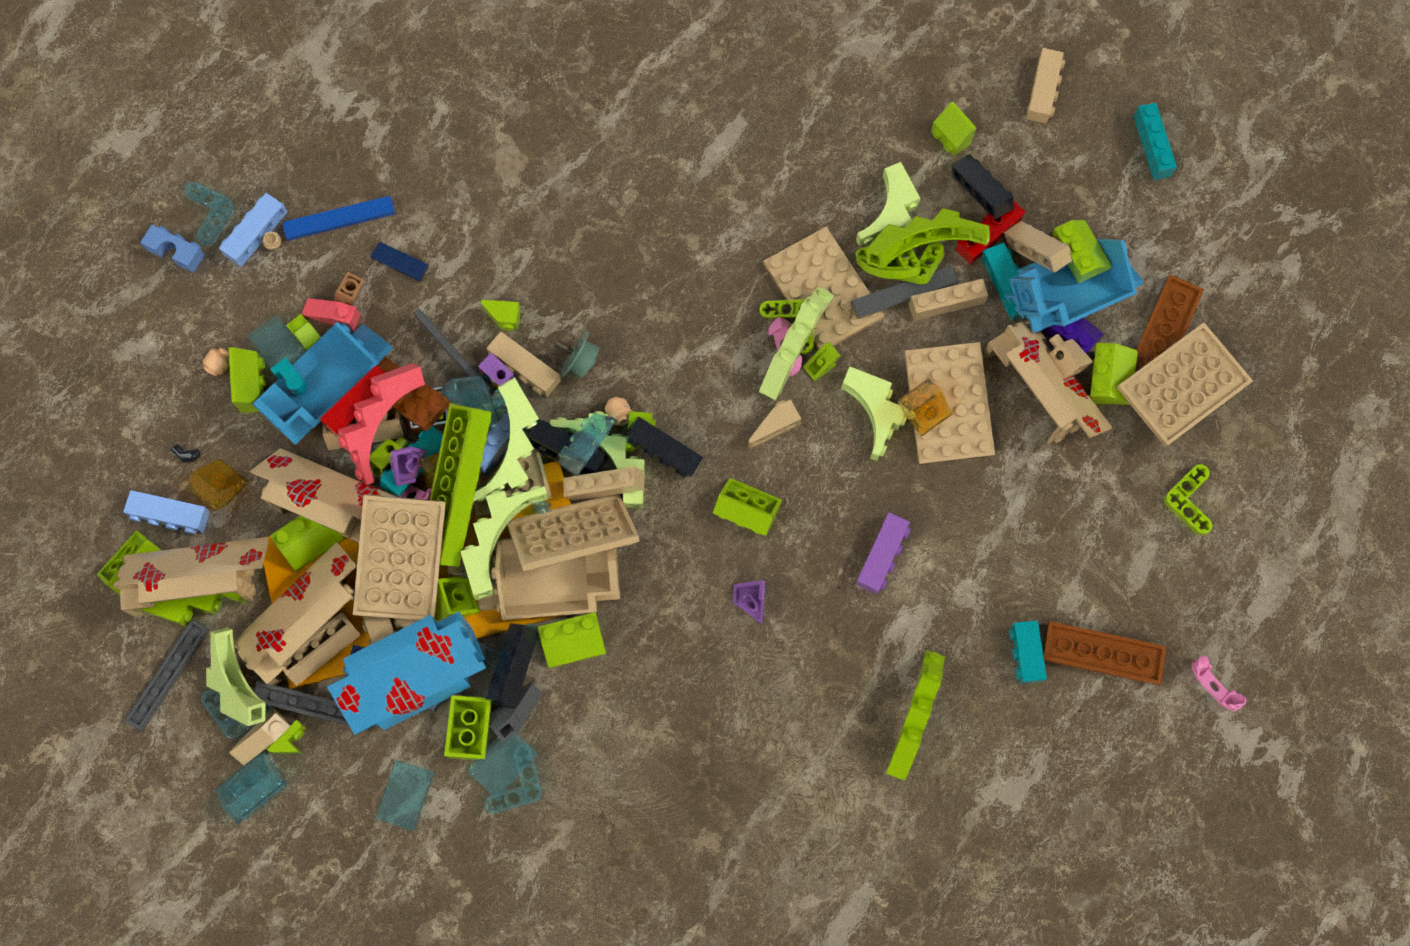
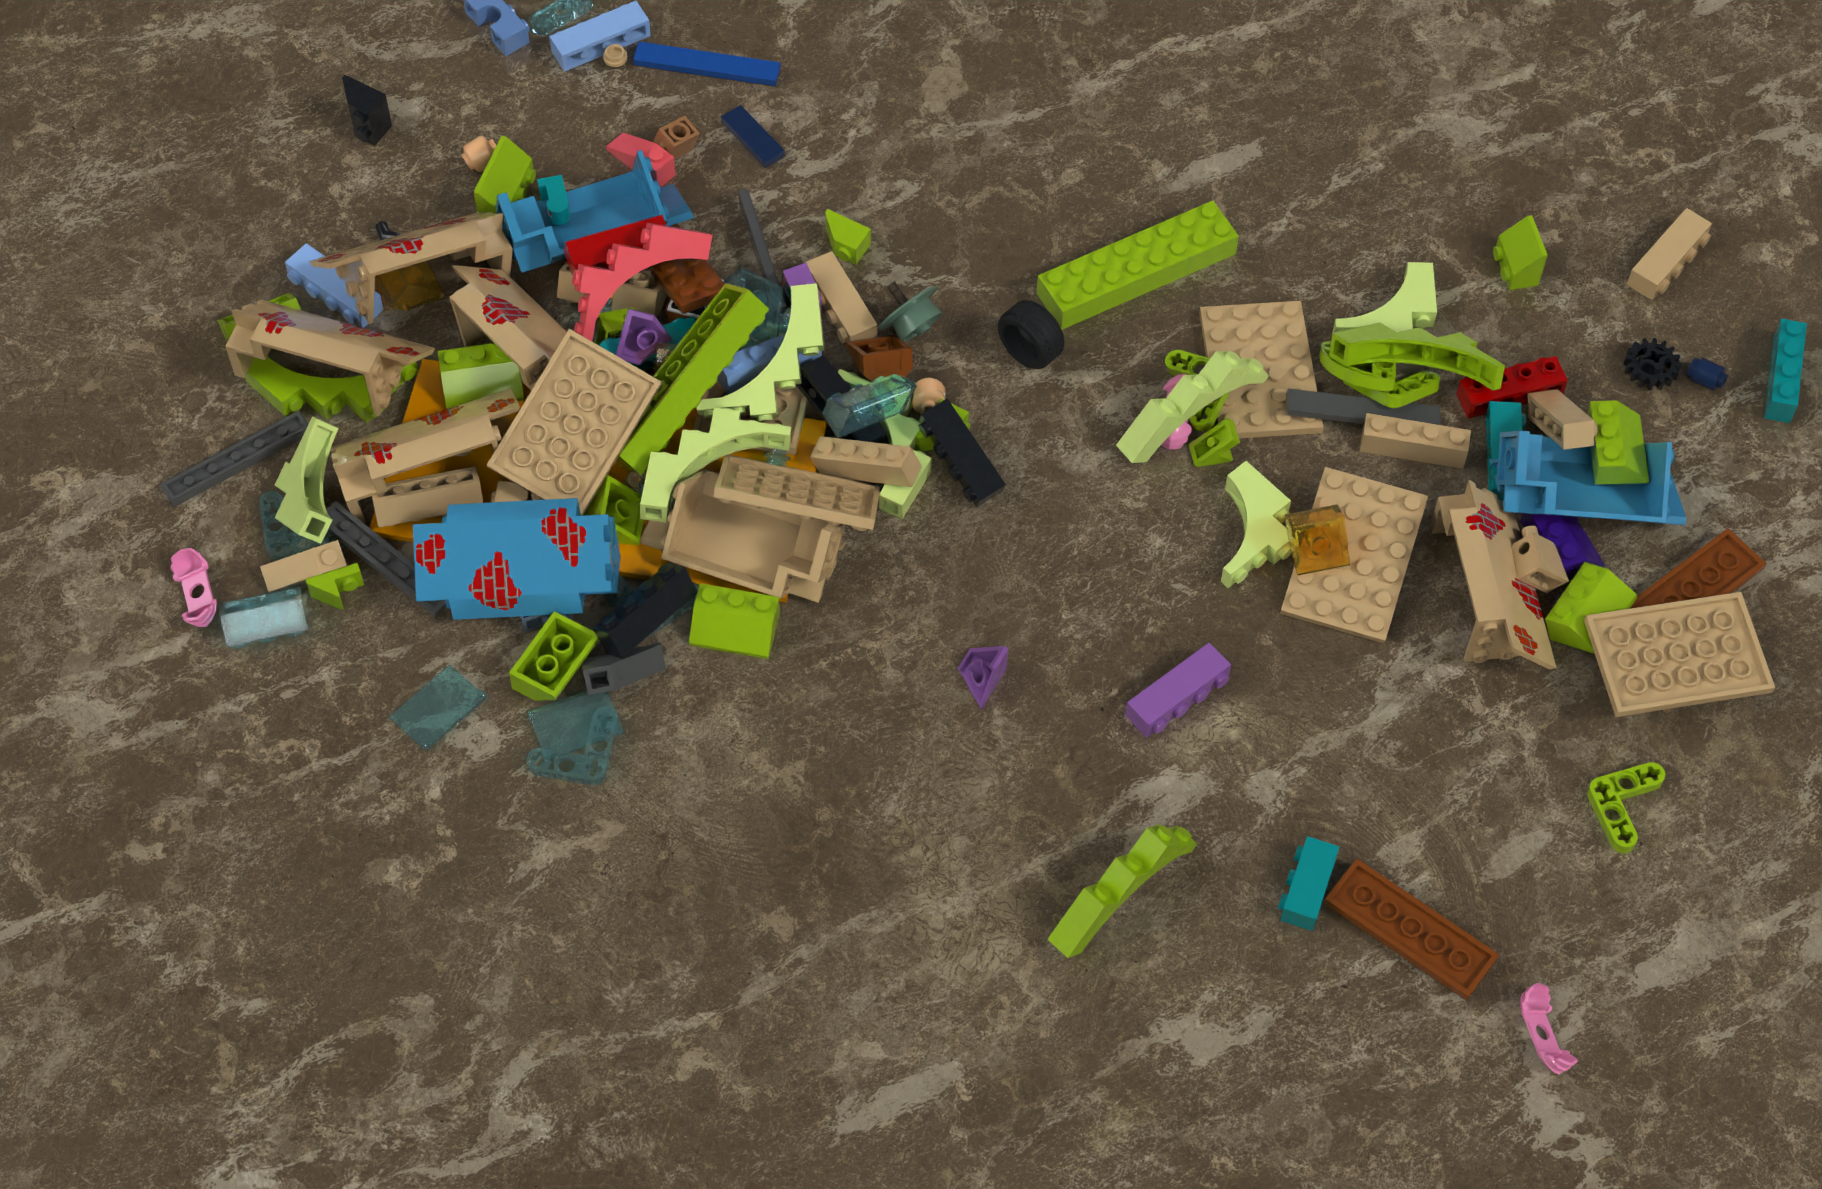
camera: 25 degrees right, 15 degrees down
(118, 365) = (367, 110): none -> black slope
(184, 777) = (191, 570): none -> bright pink piece
(215, 468) = (471, 235): none -> tan panel
(276, 342) = (562, 158): clear light blue piece -> none
(303, 331) = (598, 163): lime slope -> none
(573, 397) = (881, 356): none -> dark orange slope
(666, 336) = (1031, 334): none -> black tyre
(707, 248) = (1137, 264): none -> lime brick
(747, 506) = (1032, 566): lime slope -> none
(779, 420) = (1120, 489): tan slope -> none
(982, 186) = (1525, 329): black brick -> none
(1071, 167) = (1652, 364): none -> black gear
(1107, 165) = (1707, 373): none -> dark blue brick

